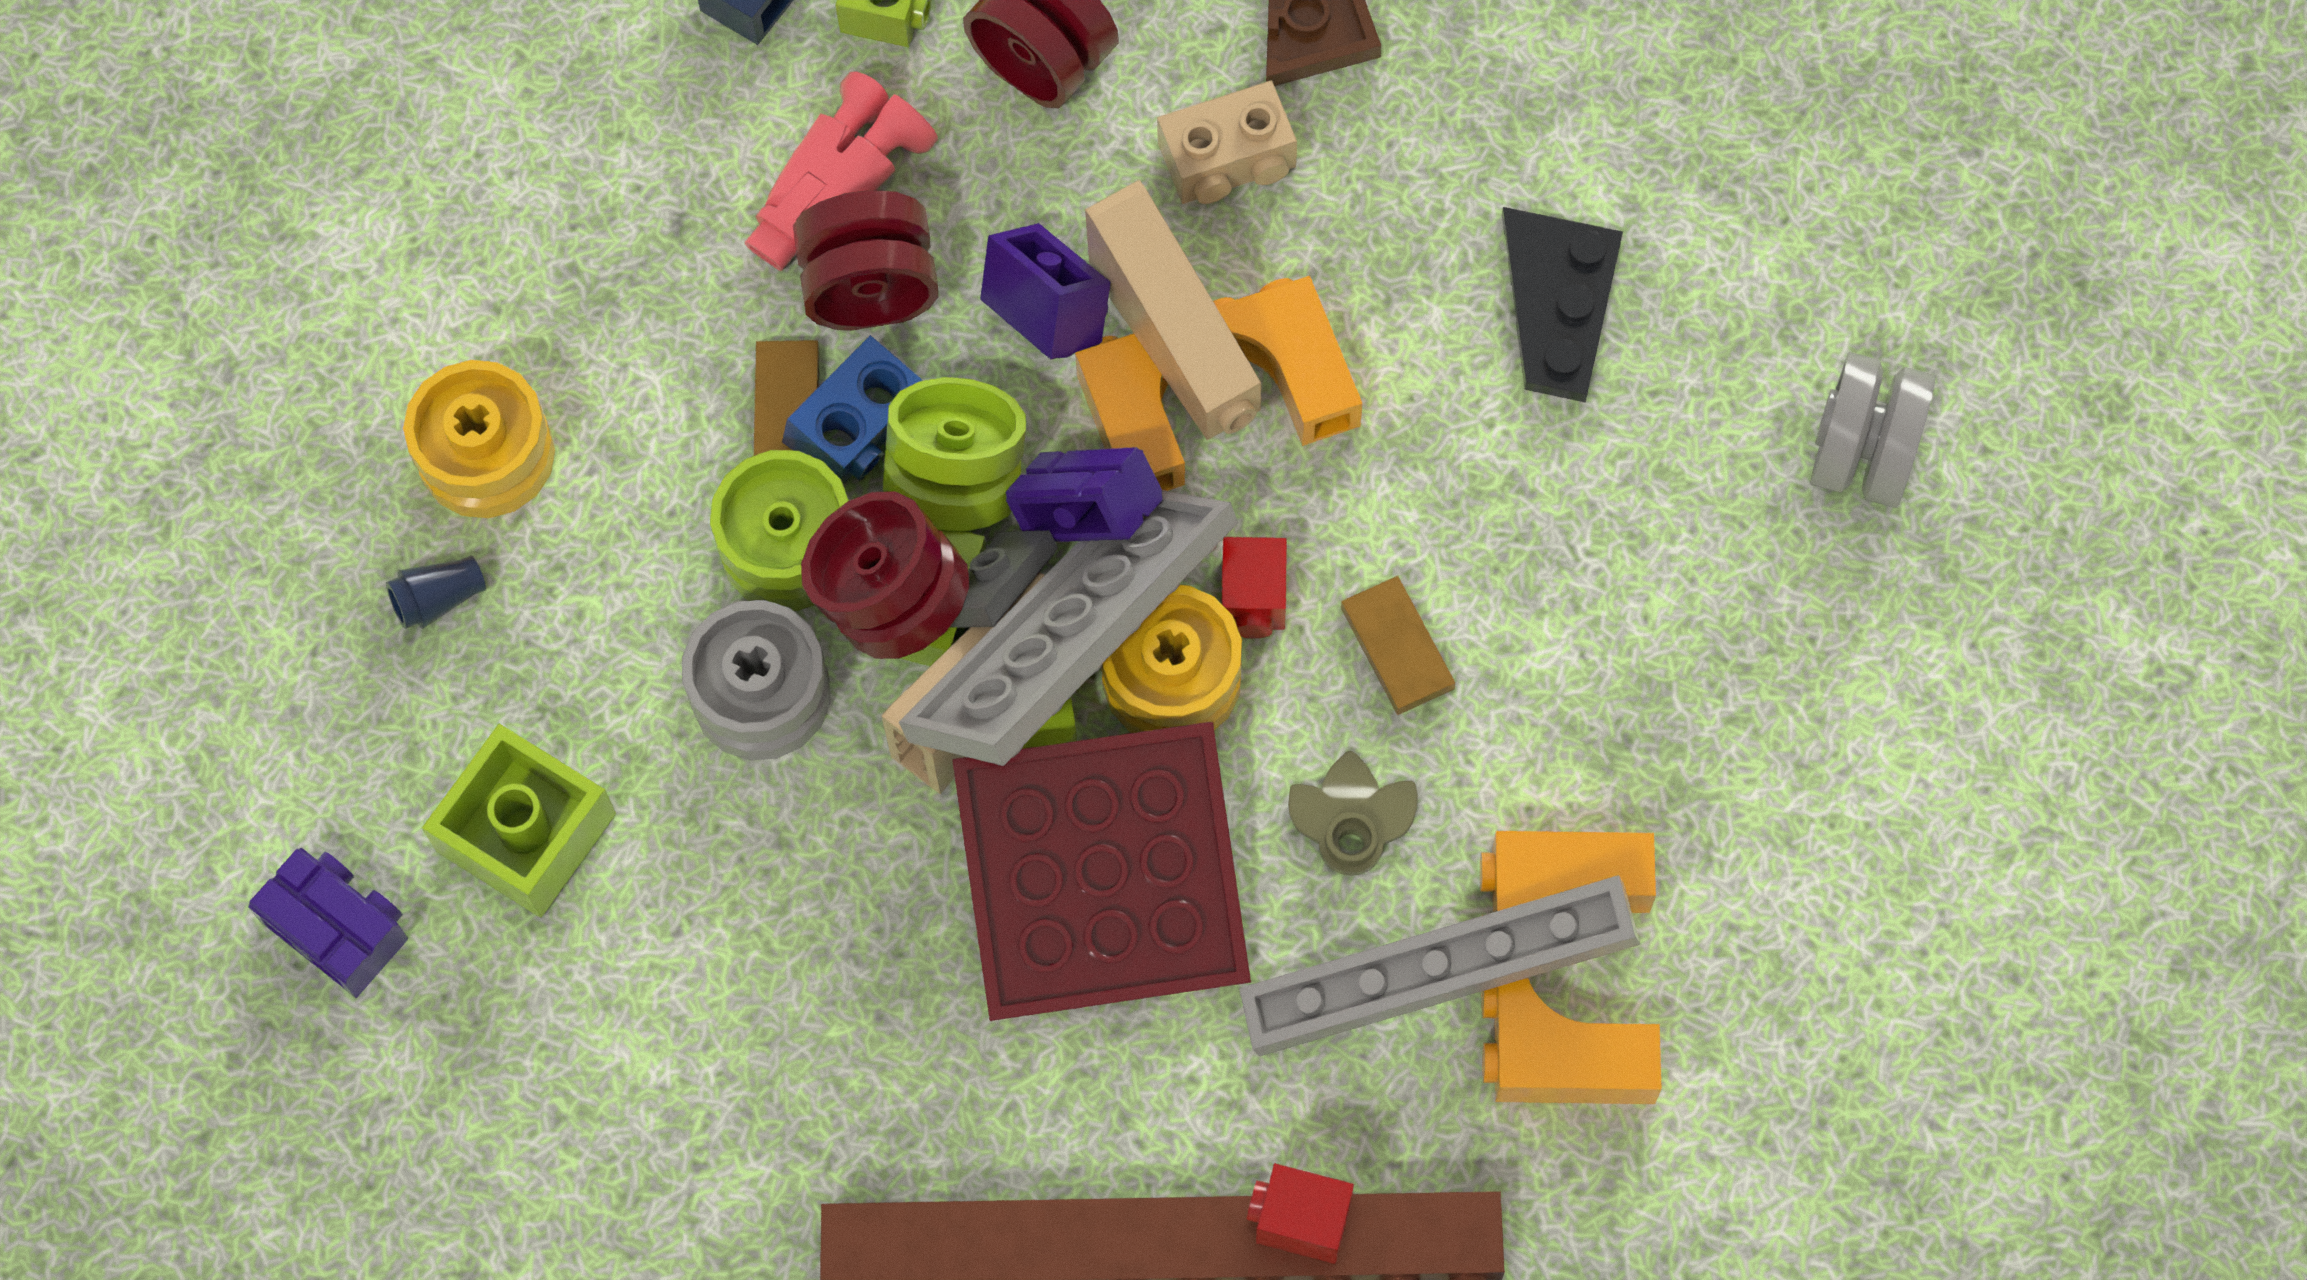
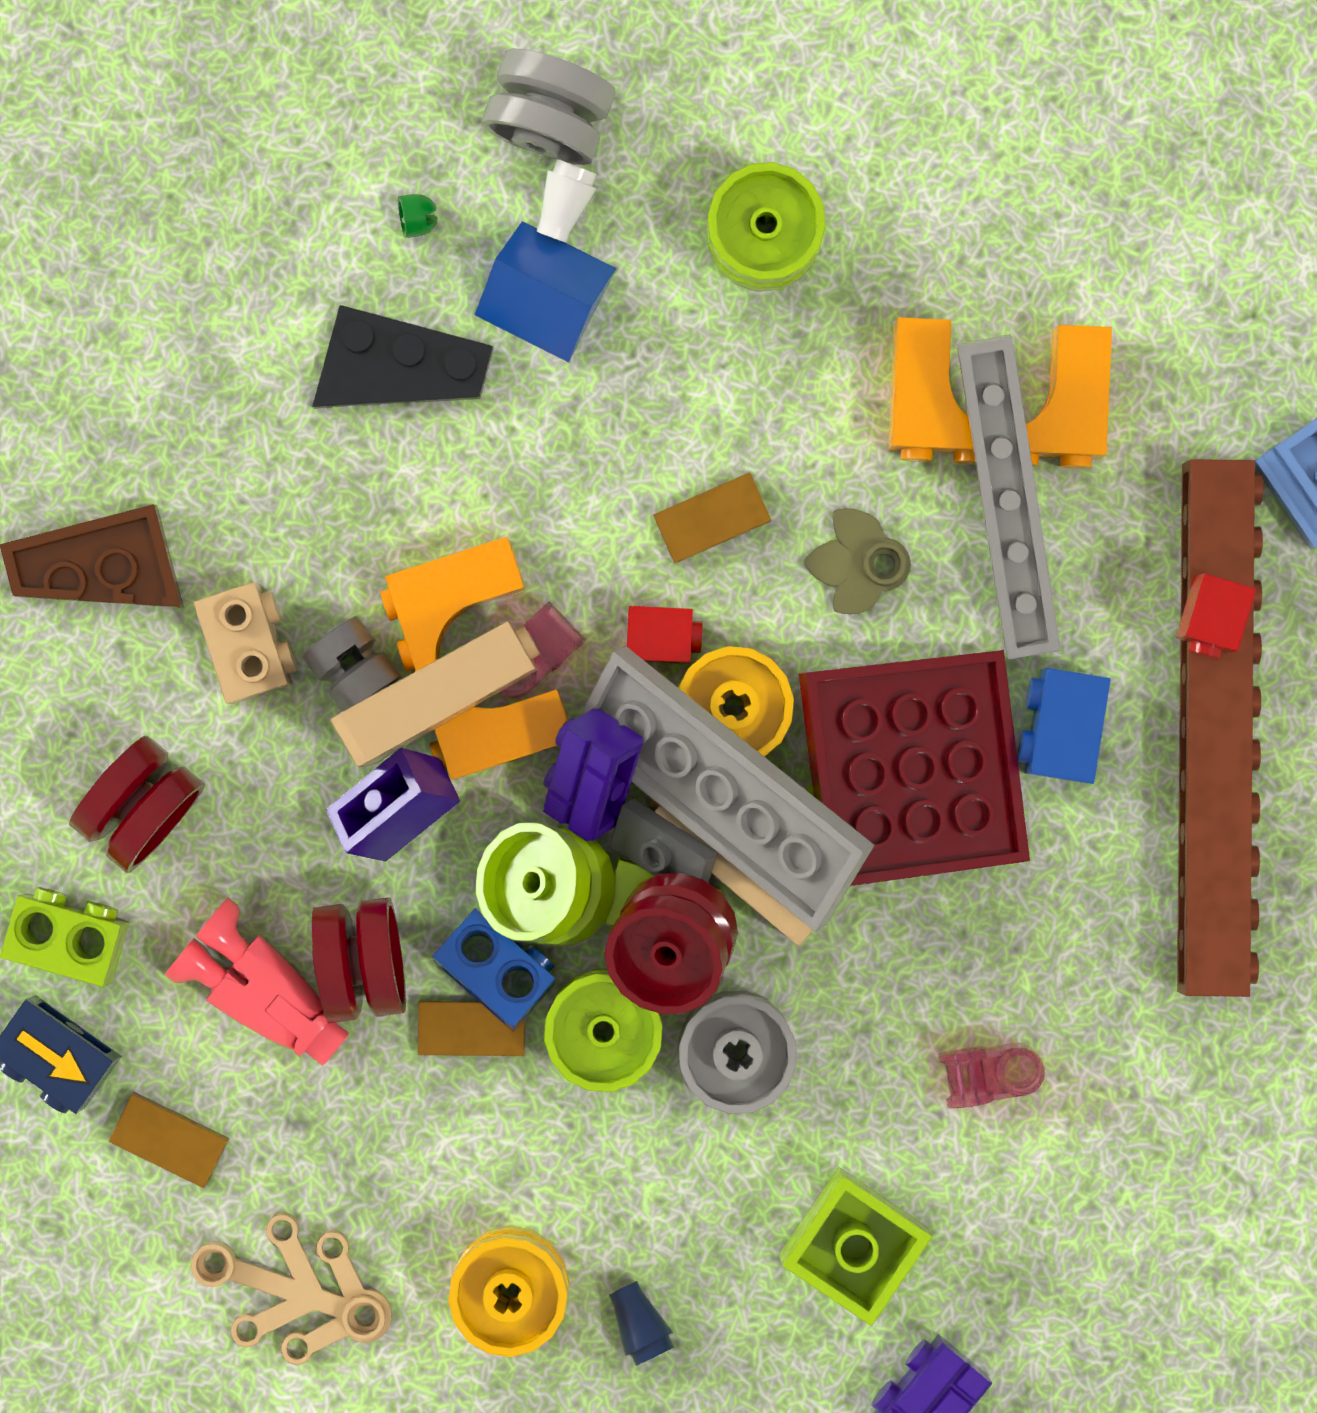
camera: 90 degrees left, 20 degrees up
(488, 230) = (301, 1293): none -> tan plant
(662, 92) = (168, 1140): none -> pearl gold tile
(726, 974) = (986, 1074): none -> clear pink piece
(1158, 1057) = (1064, 725): none -> blue brick
(1218, 243) = (362, 680): none -> flat silver wheel
(1238, 461) = (555, 640): none -> clear pink piece
(1659, 449) = (544, 291): none -> blue slope
(1738, 300) = (415, 212): none -> green hinge
(1744, 645) = (765, 194): none -> lime wheel
(1767, 466) = (565, 198): none -> white cone

